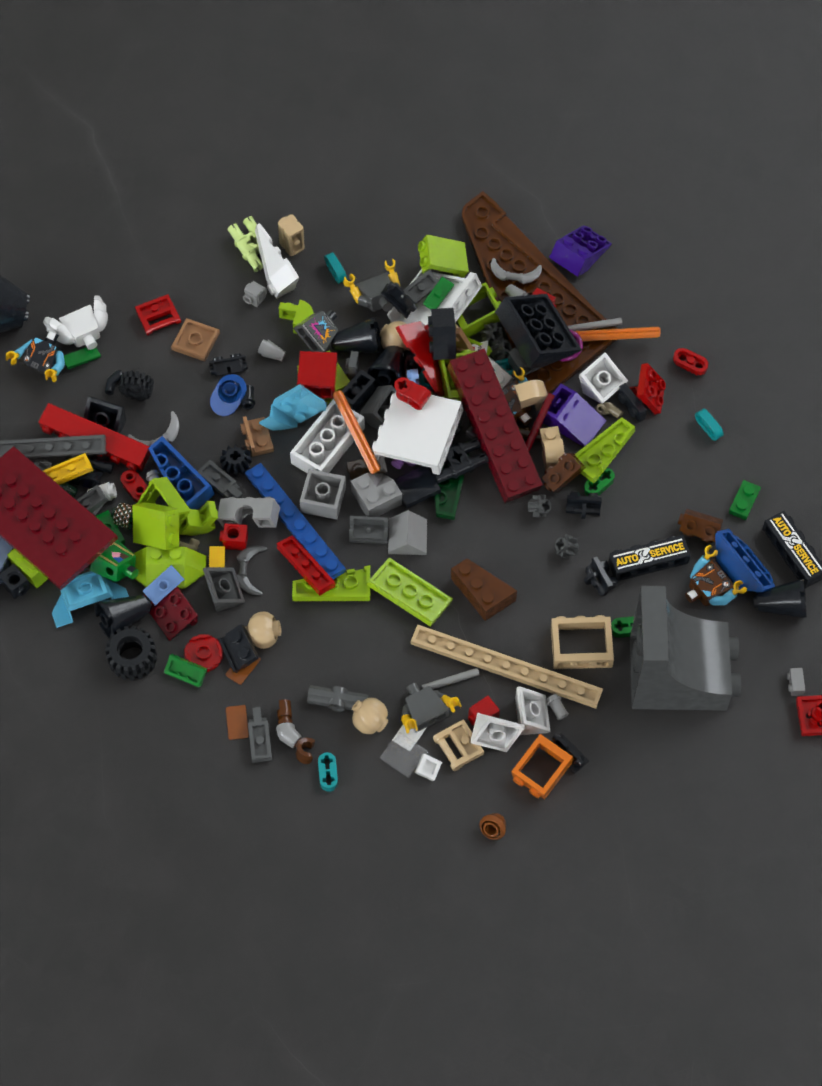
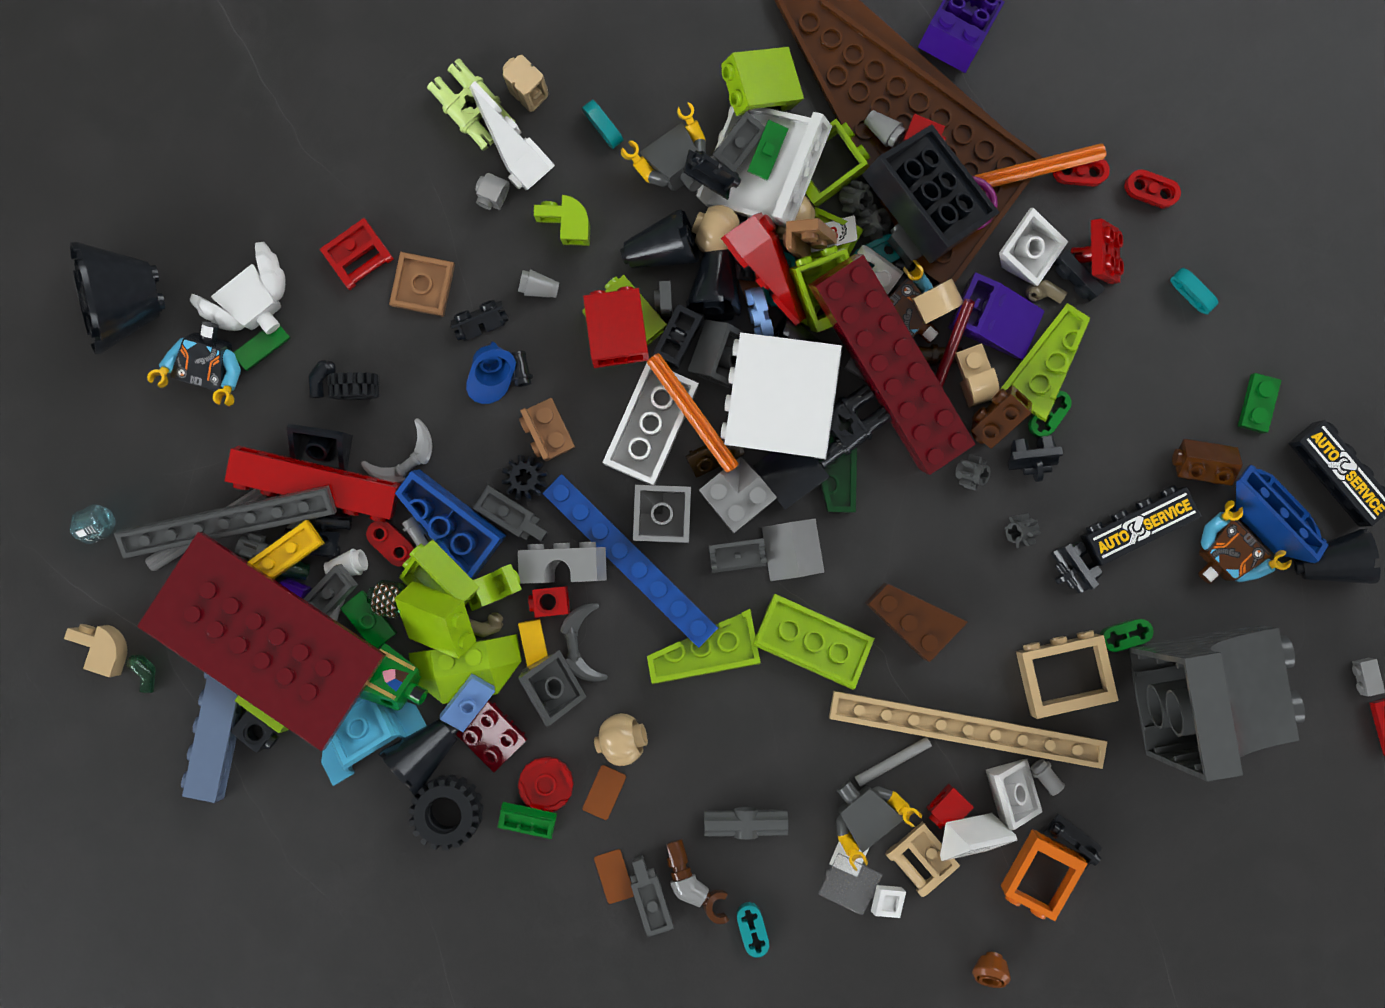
camera: 10 degrees left, 25 degrees up
(238, 648) = (593, 775): black plate -> none
(293, 408) = (587, 386): medium azure piece -> none
(306, 565) = (660, 631): red plate -> none
(318, 330) = (600, 245): dark grey torso -> none
(370, 715) = (796, 846): tan plant -> none
(411, 393) = (772, 348): red piece -> none
(443, 331) = (795, 236): black brick -> none
(523, 278) = (857, 94): light grey piece -> none
(595, 325) = (1006, 156): light grey bar -> none
(644, 345) = (1080, 174): none -> red plate

